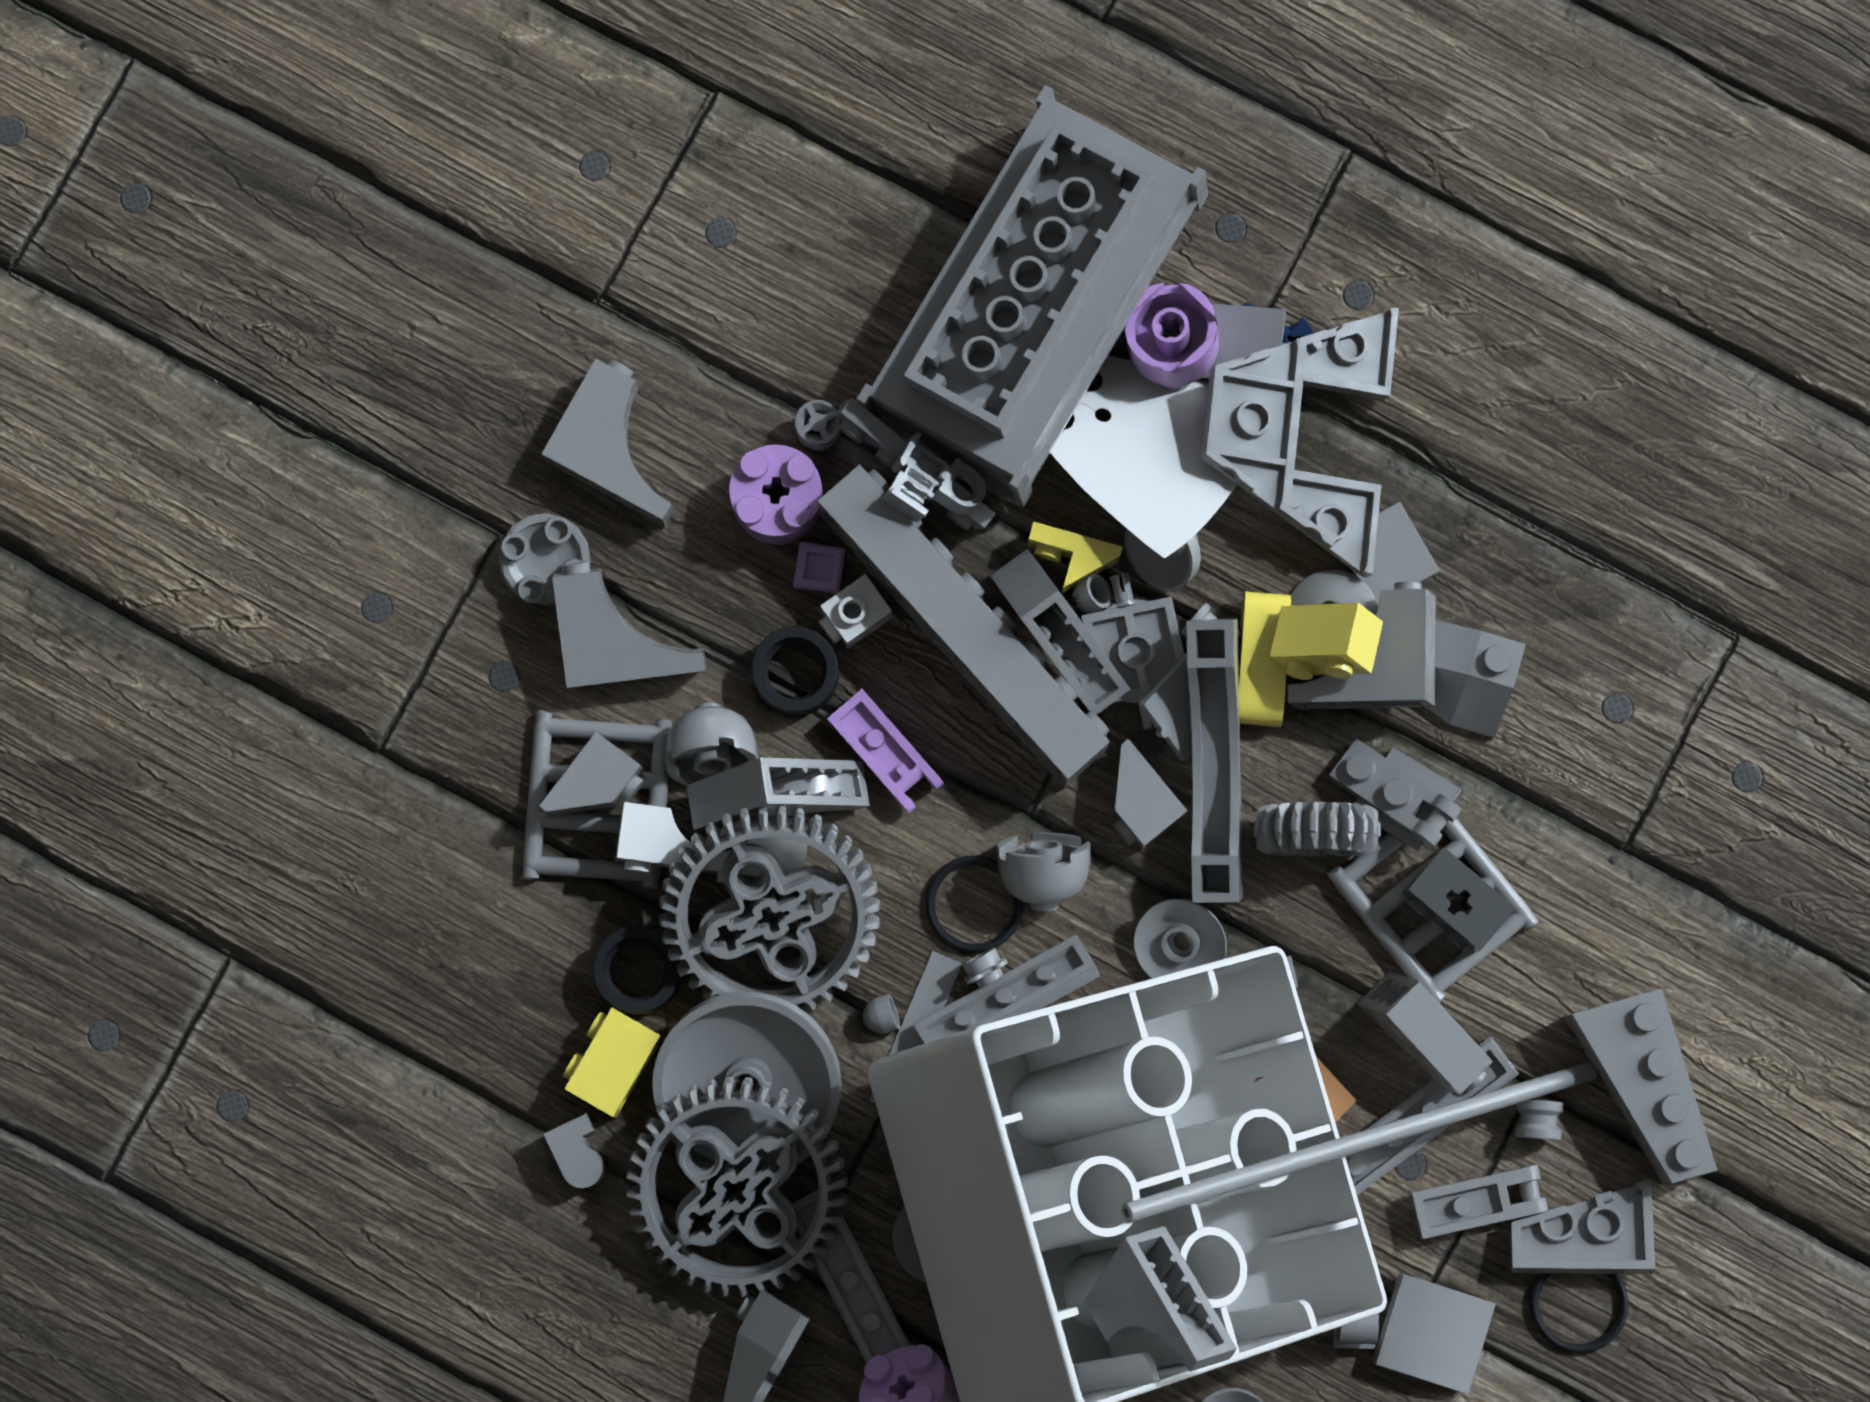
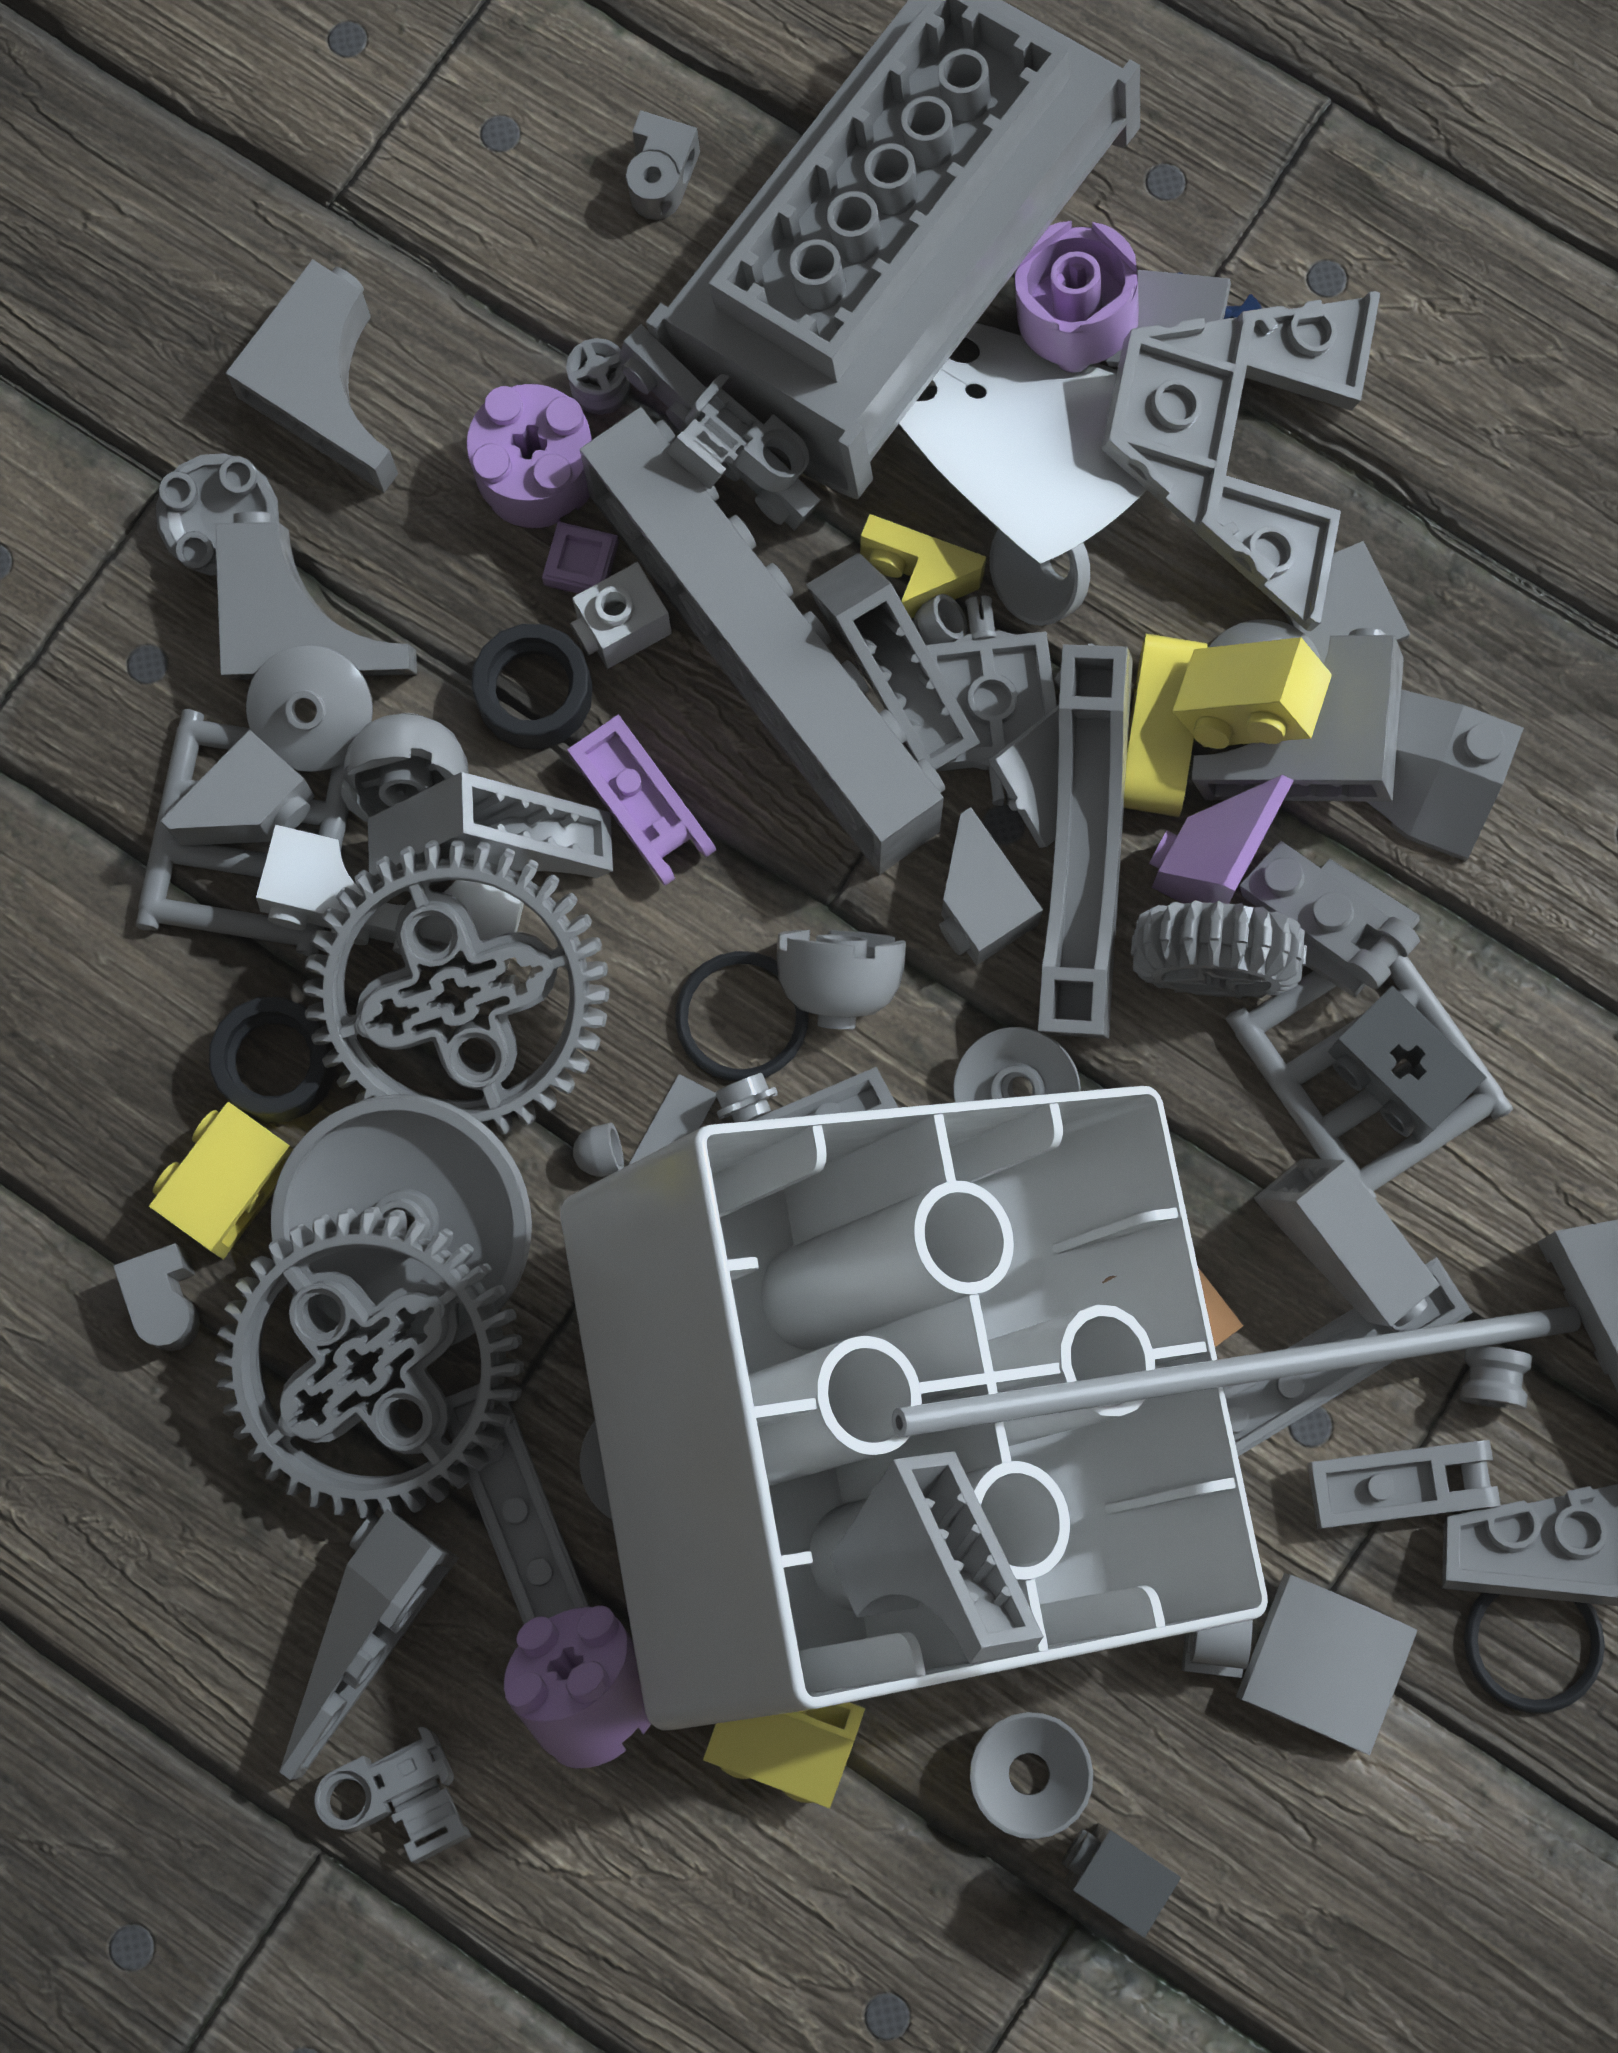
camera: 10 degrees right, 5 degrees down
(634, 684) = (334, 687): none -> light grey dish
(849, 259) = (662, 165): none -> light grey leg
(1310, 753) = (1217, 845): none -> lavender slope

